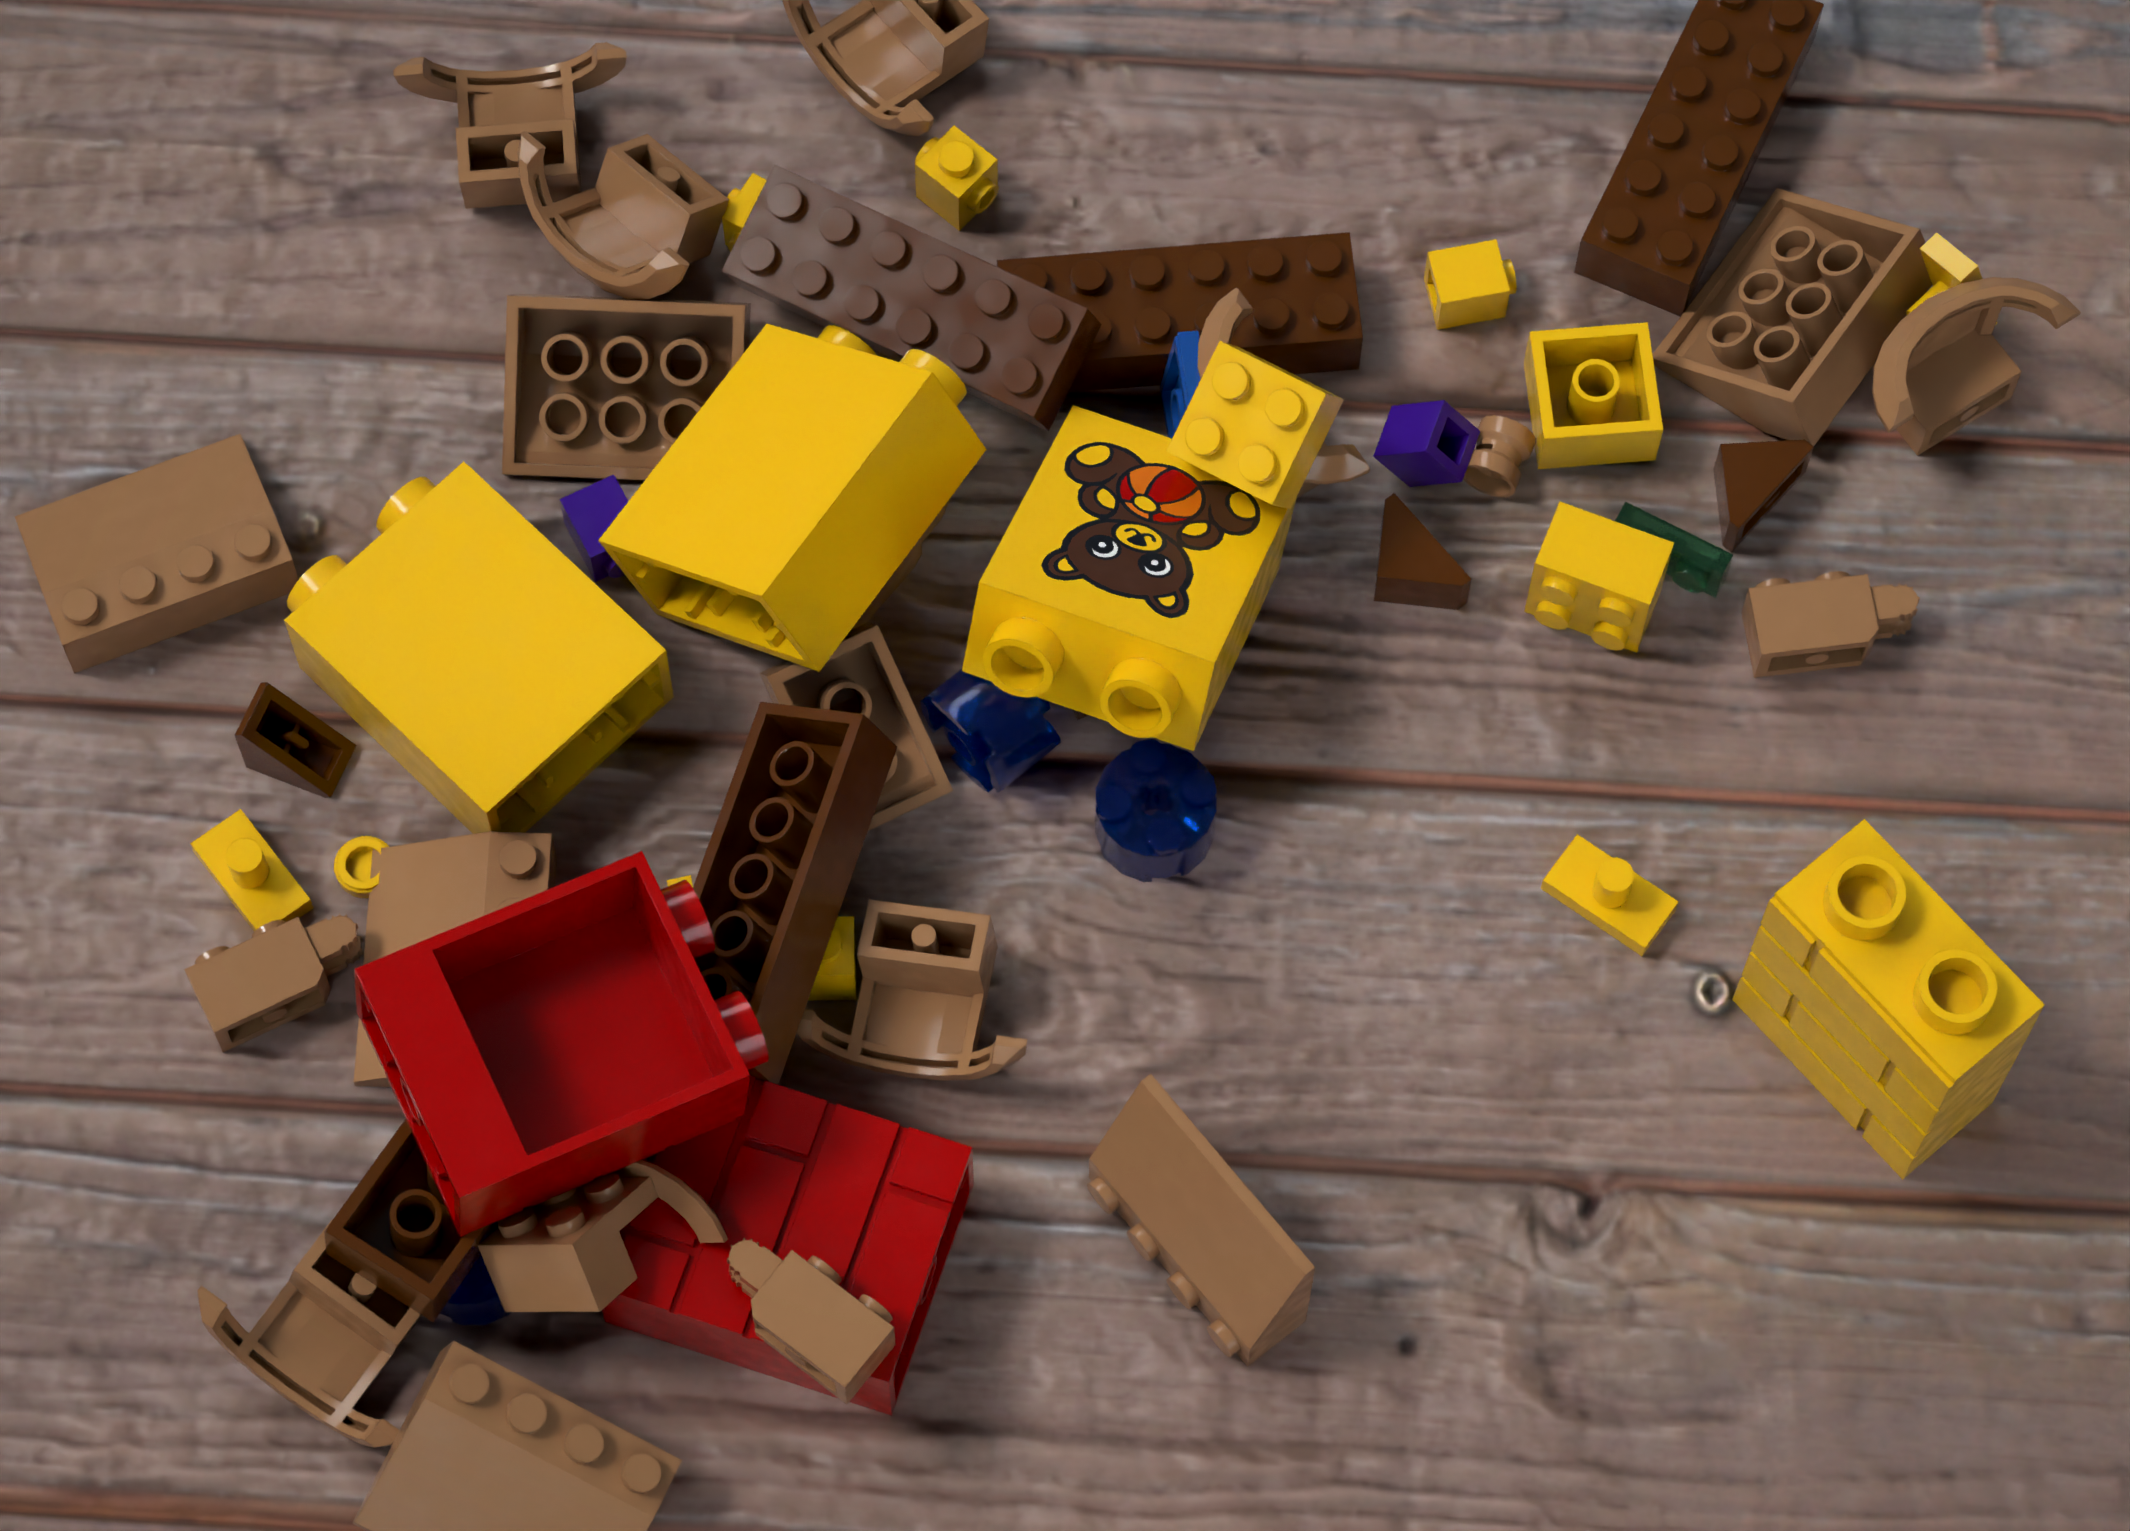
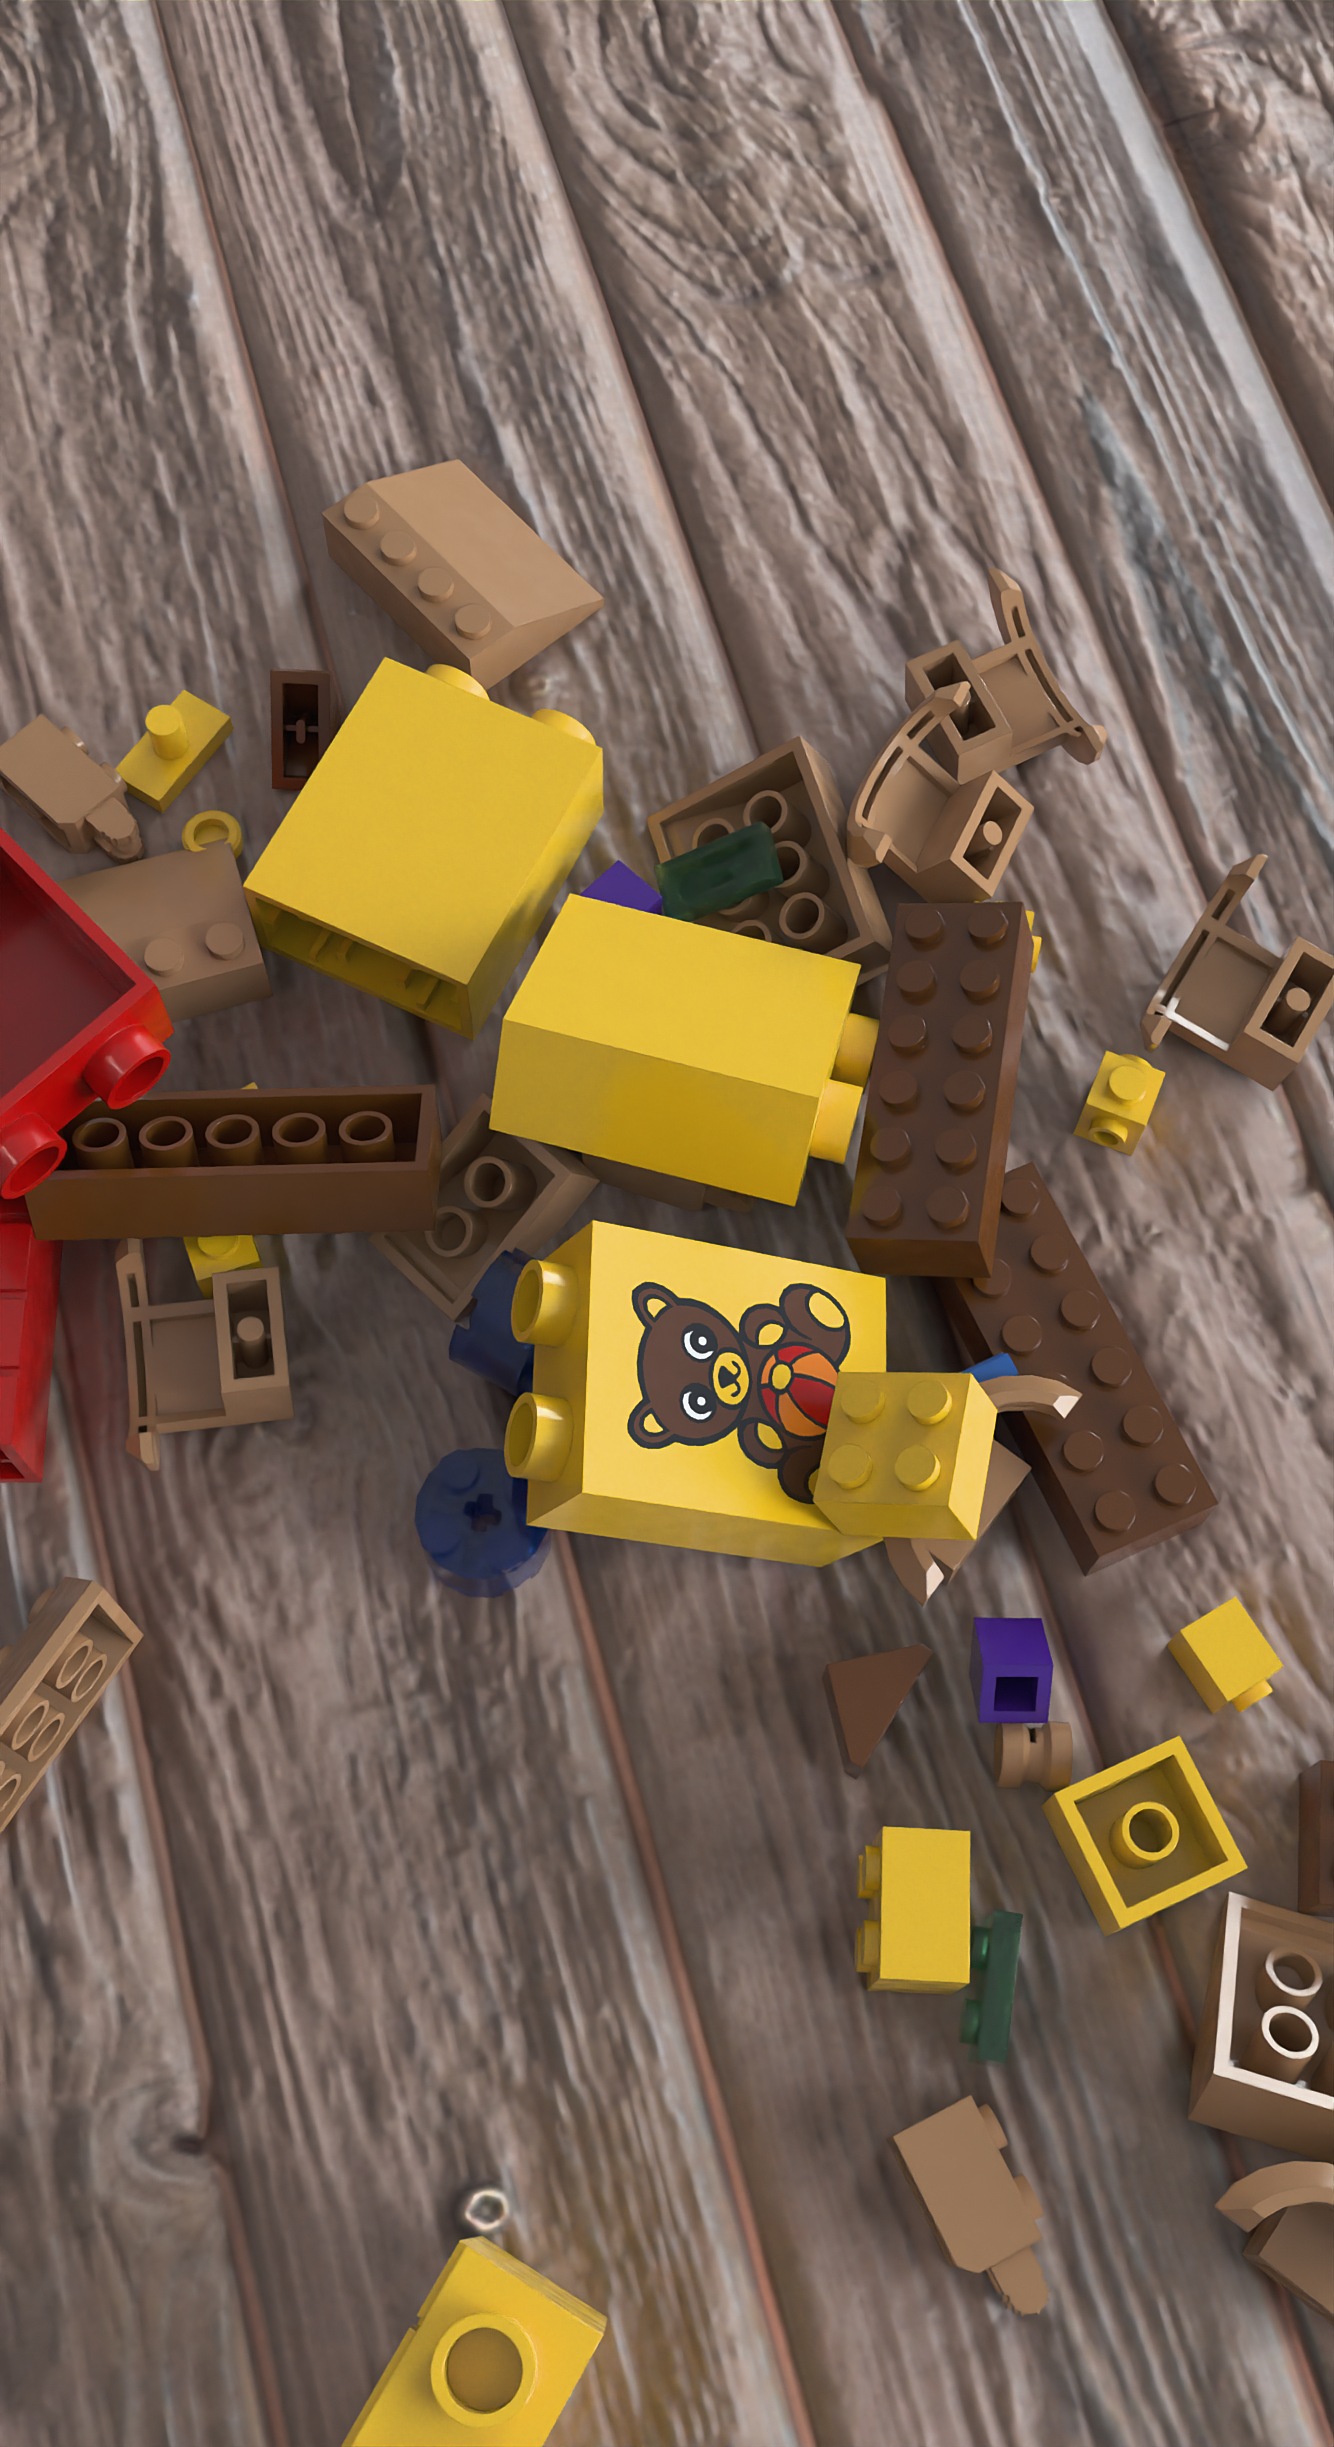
camera: 70 degrees right, 0 degrees up
(610, 419) = (719, 873): none -> clear green plate
(1609, 894) = (557, 2050): yellow tile -> none
(1753, 480) = (1117, 2061): reddish brown slope -> none

